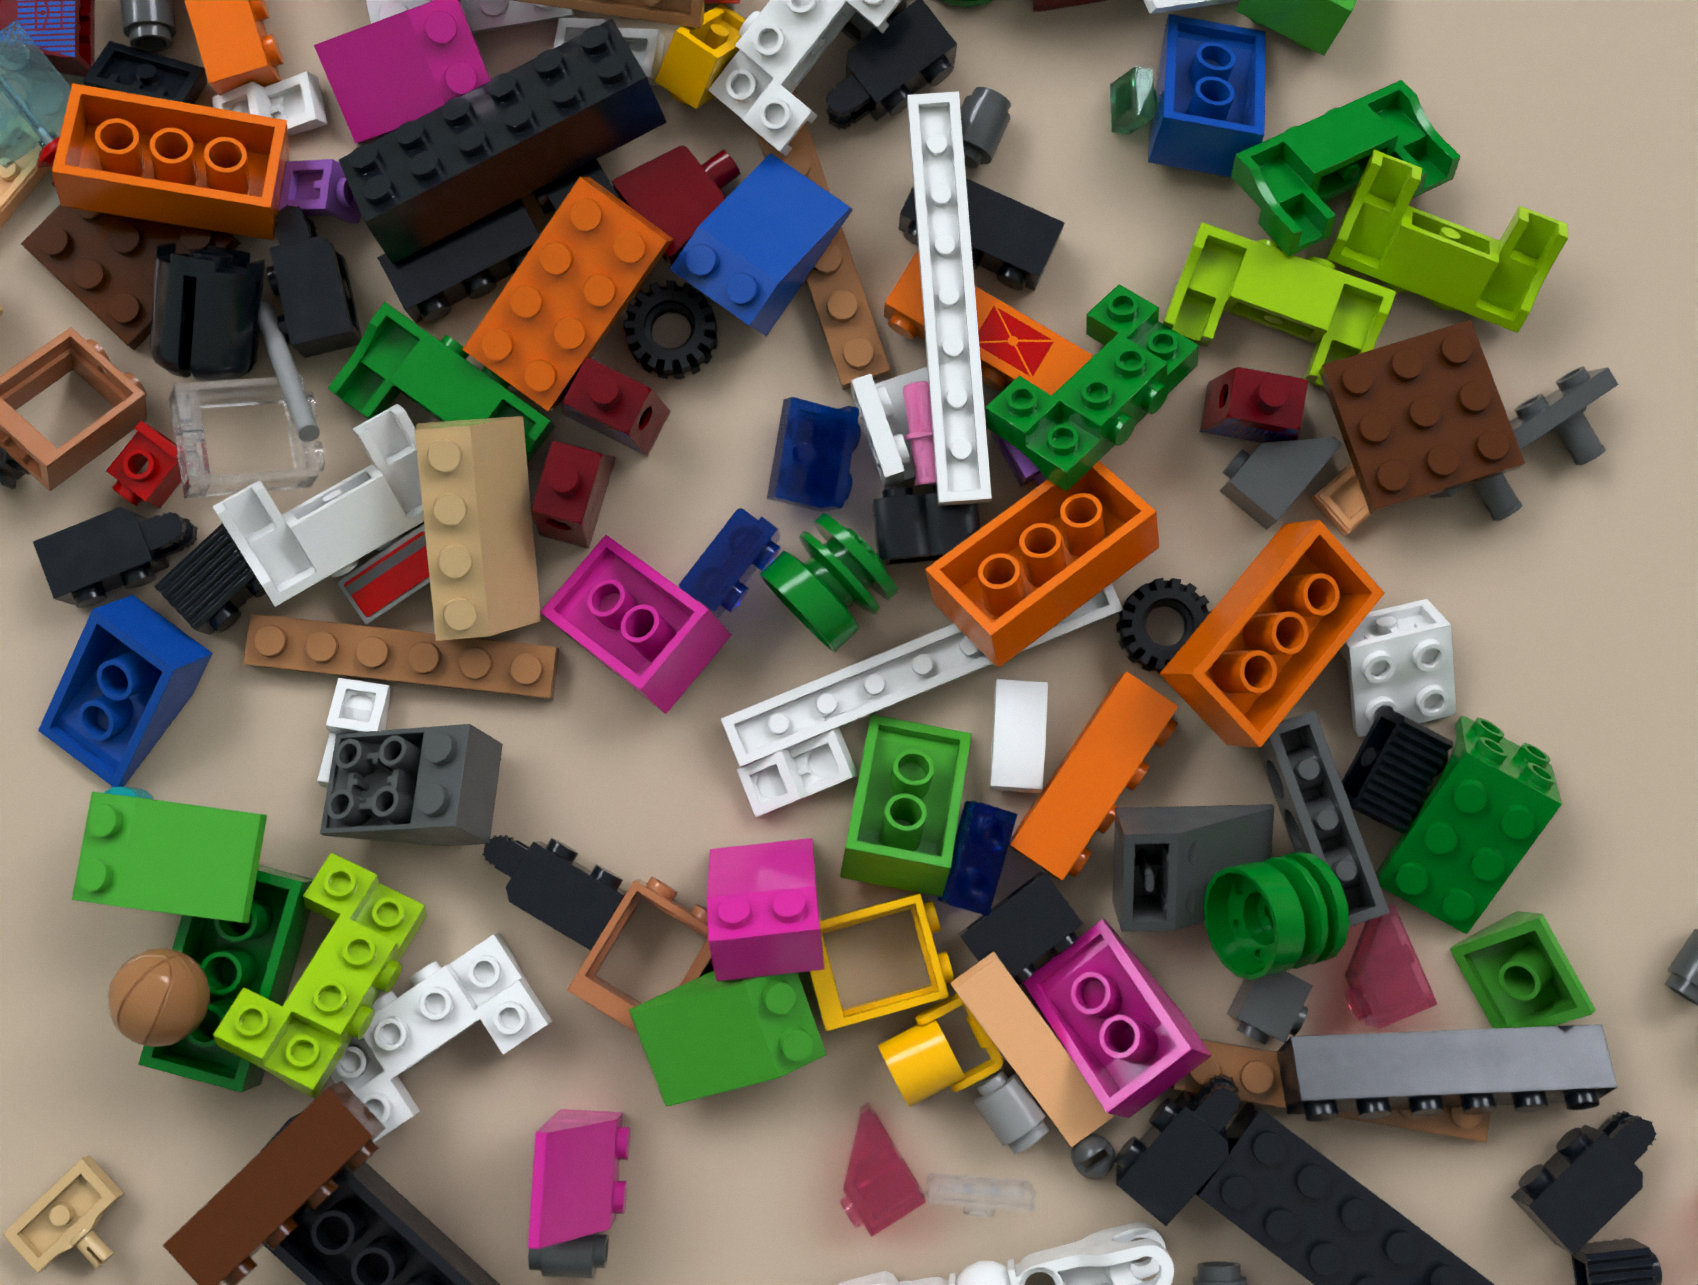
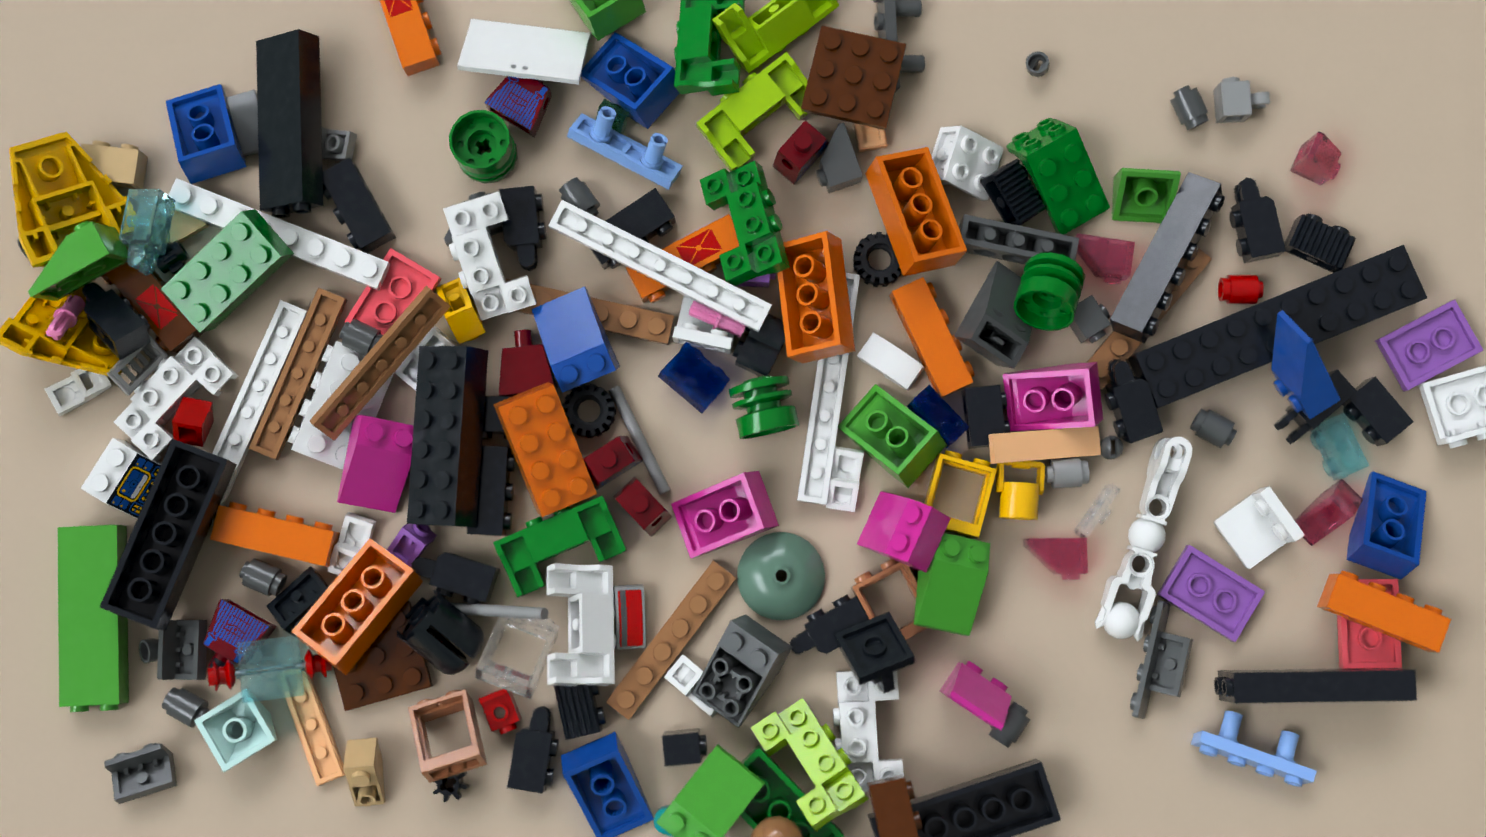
camera: 60 degrees left, 0 degrees up
(241, 767) = (683, 747): none -> black brick
(478, 526) = (633, 562): tan slope -> none
(549, 973) = (875, 650): none -> black bracket
(630, 769) = (758, 576): none -> sand green dish
(673, 431) = (639, 440): none -> light grey bar
(730, 561) = (722, 450): clear blue bracket -> none
(1093, 147) = (623, 150): none -> light blue plate
(1466, 1216) = (1240, 289): none -> red brick
(1619, 679) = (1032, 62): none -> dark grey hinge

